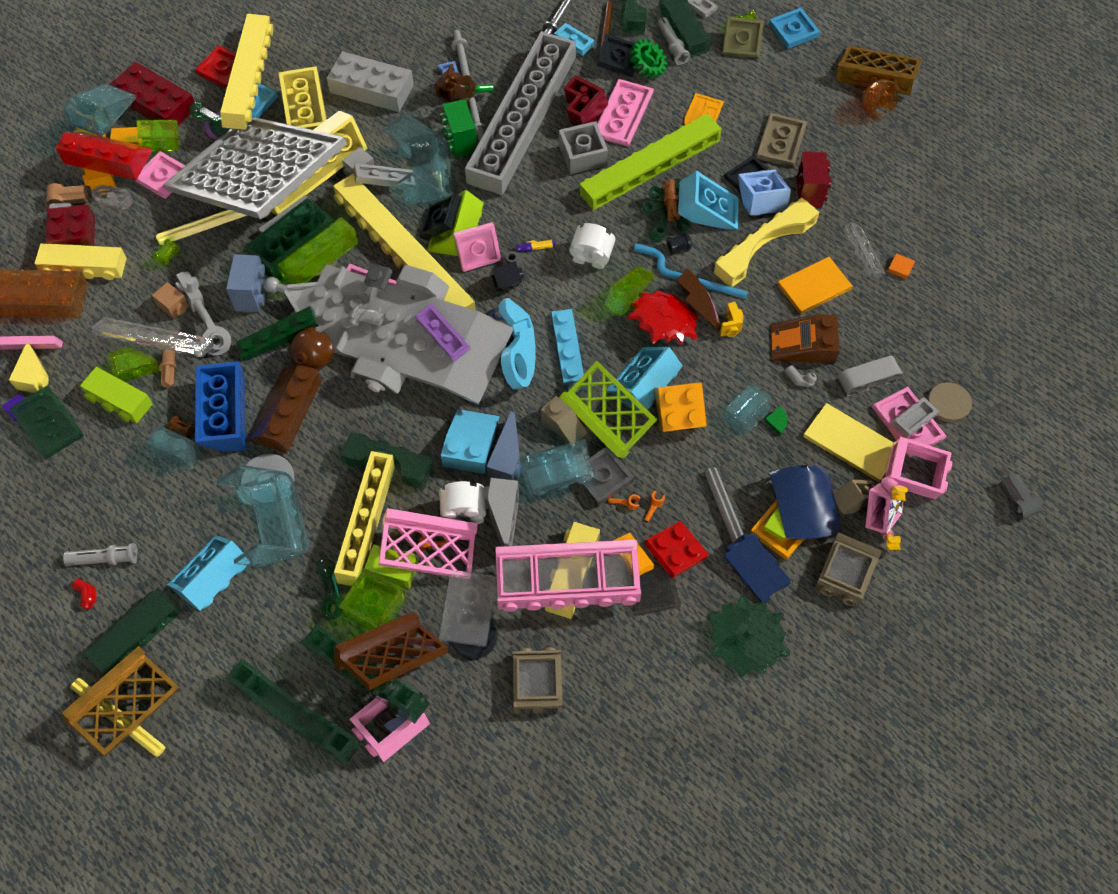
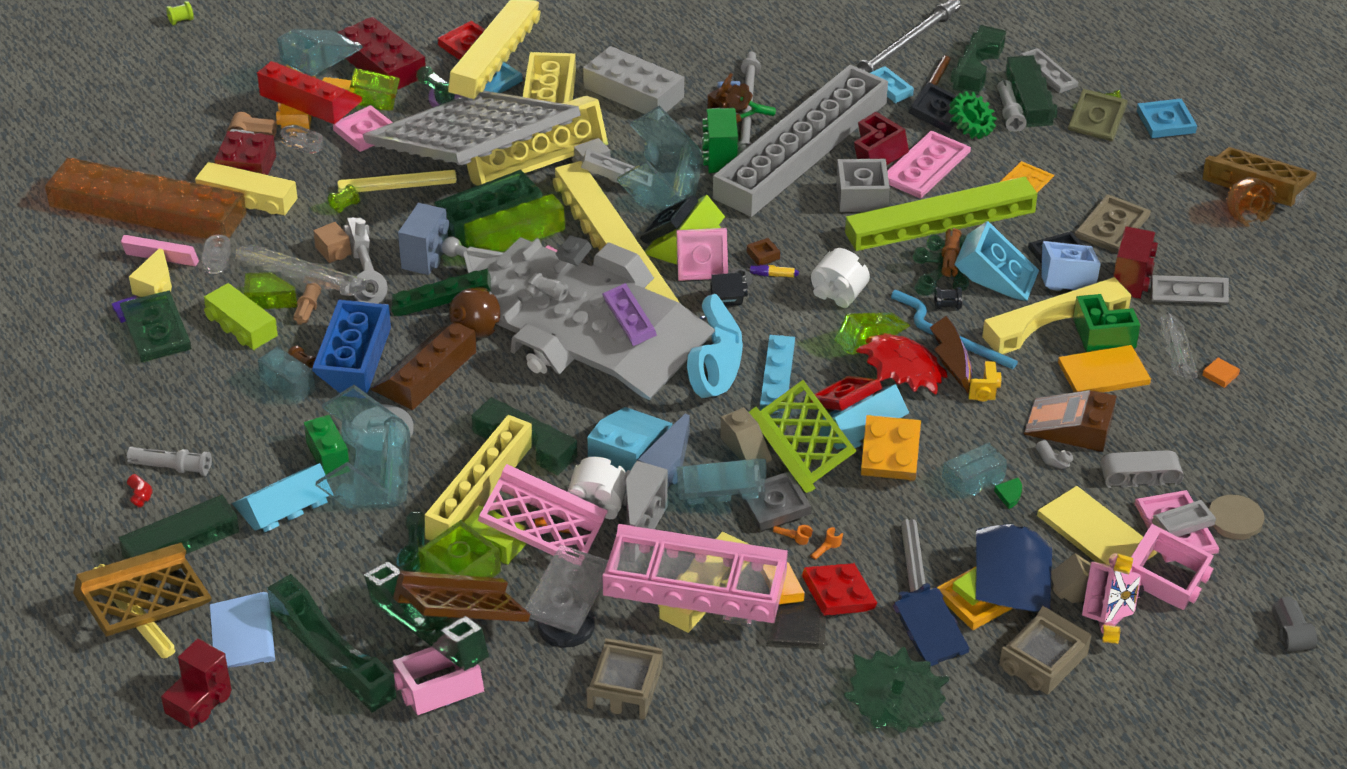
camera: 15 degrees right, 20 degrees down
(75, 335) = (216, 254): none -> clear plate
(197, 787) = (201, 685): none -> dark red brick
(214, 713) = (243, 629): none -> light blue piece
(229, 511) = (326, 443): none -> green brick
(522, 229) = (763, 251): none -> reddish brown plate
(628, 357) = (847, 392): none -> red tile
(805, 248) = (1104, 327): none -> green brick
(858, 193) = (1189, 289): none -> light grey plate

